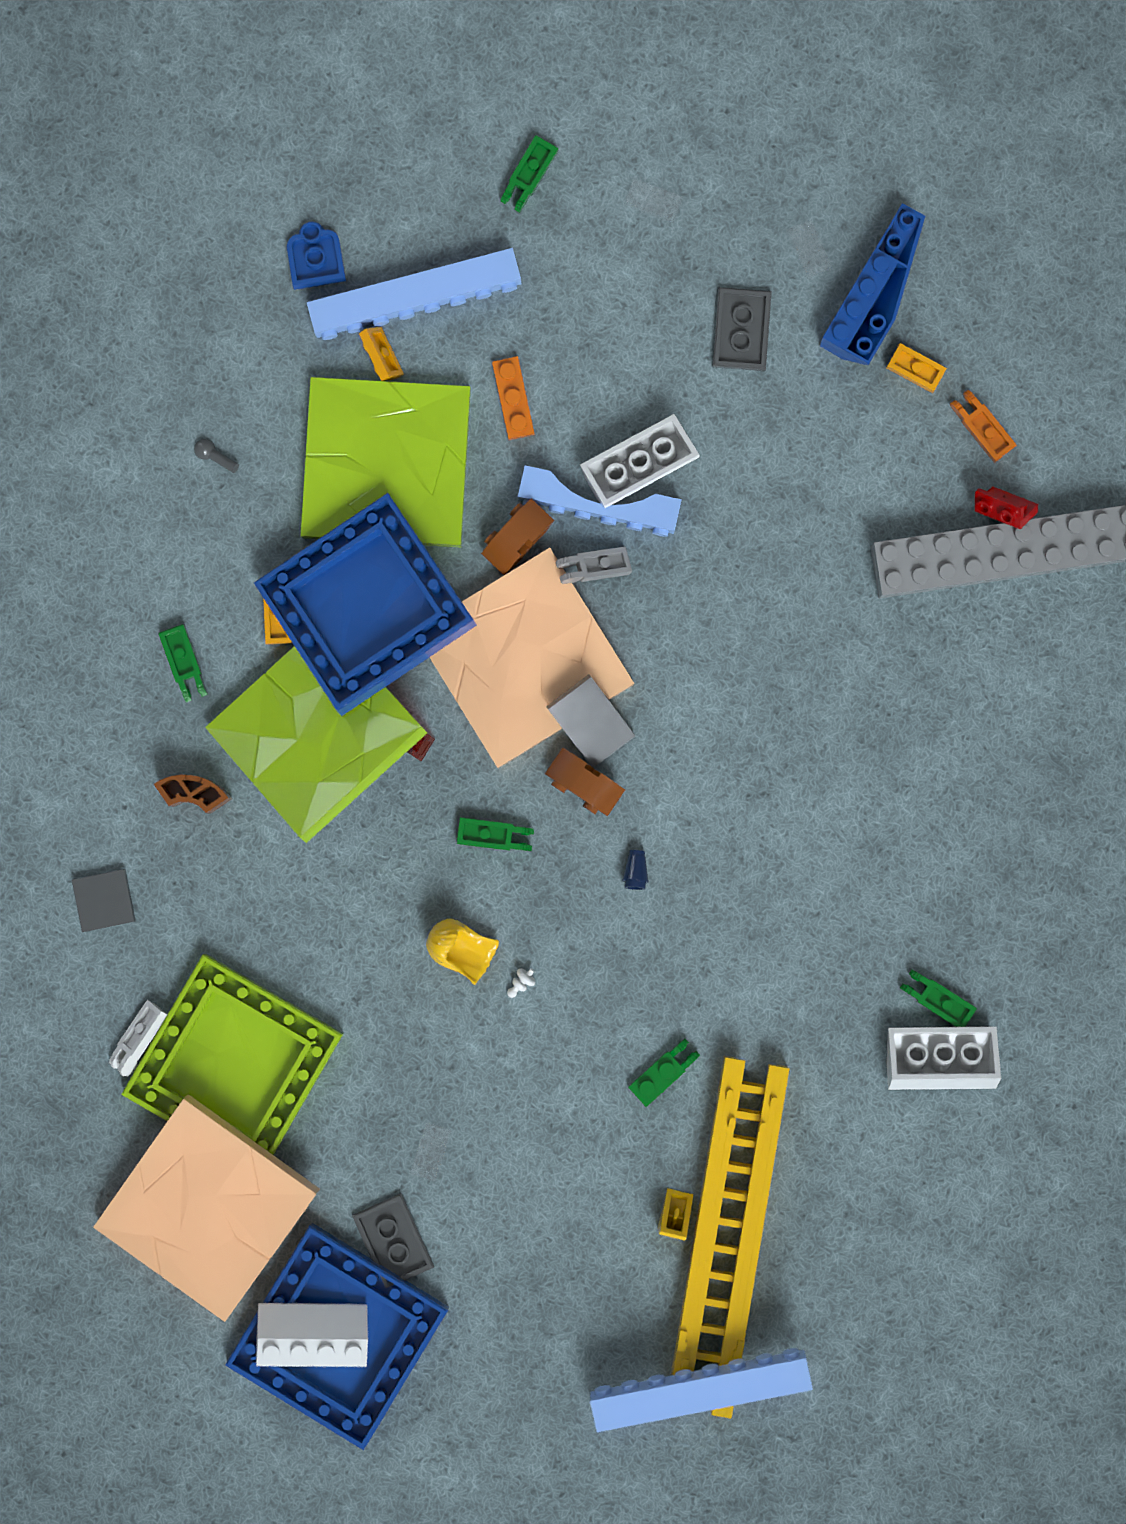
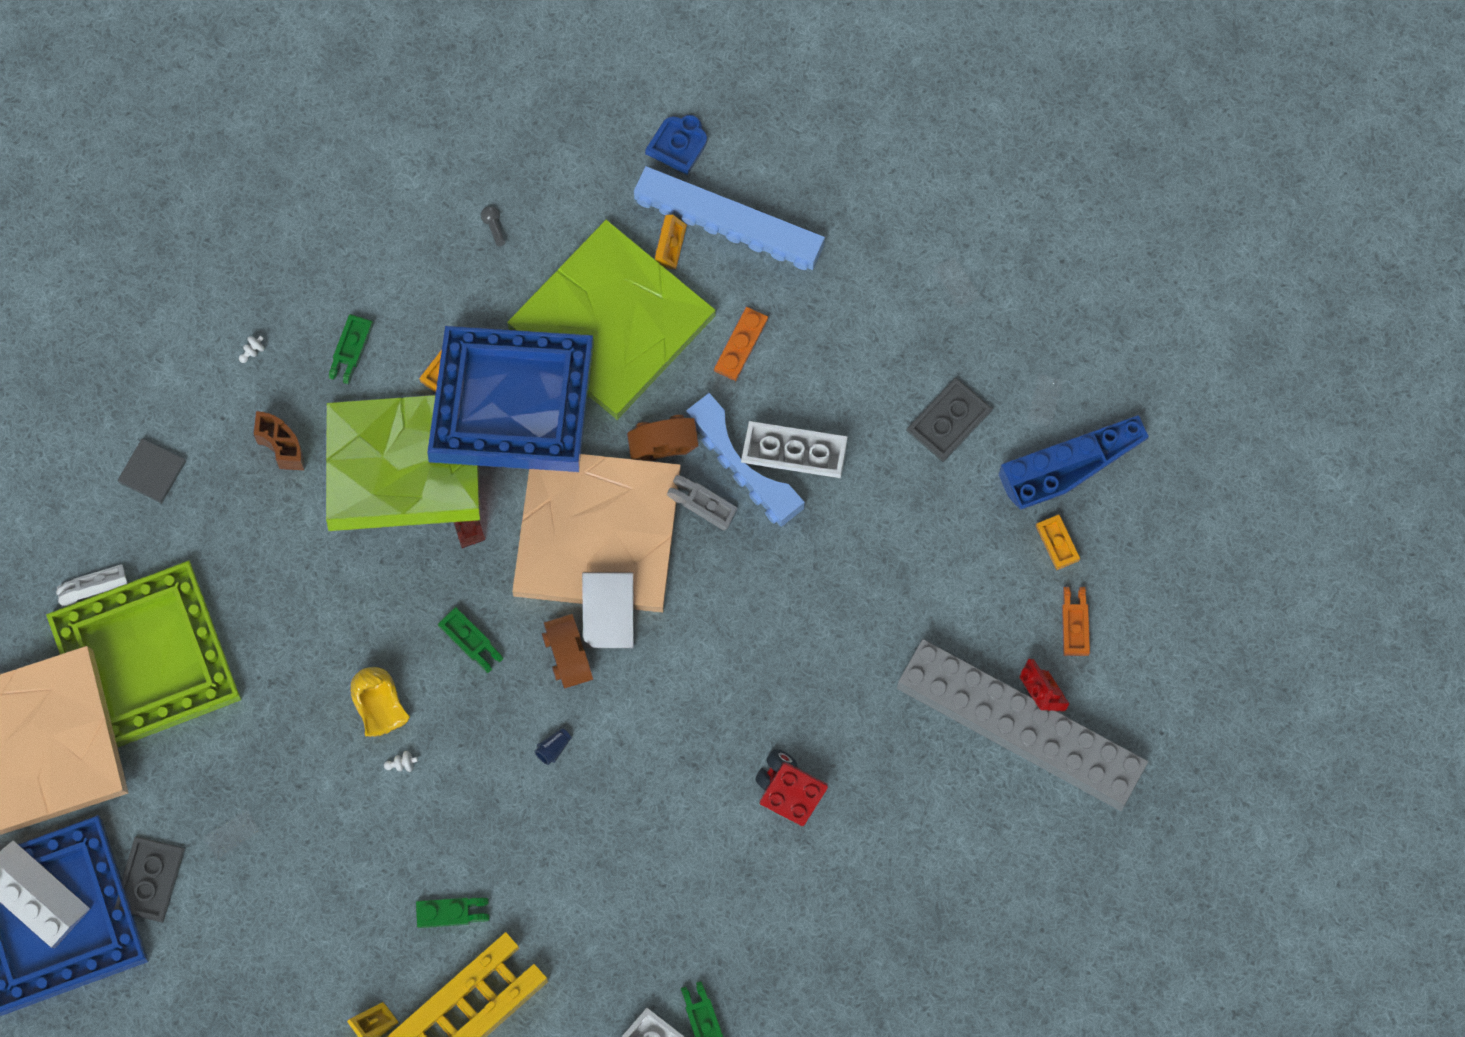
camera: 35 degrees right, 15 degrees down
(99, 721) = (250, 350): none -> white hair
(530, 171) = (881, 197): green hinge -> none
(861, 757) = (789, 789): none -> red plate

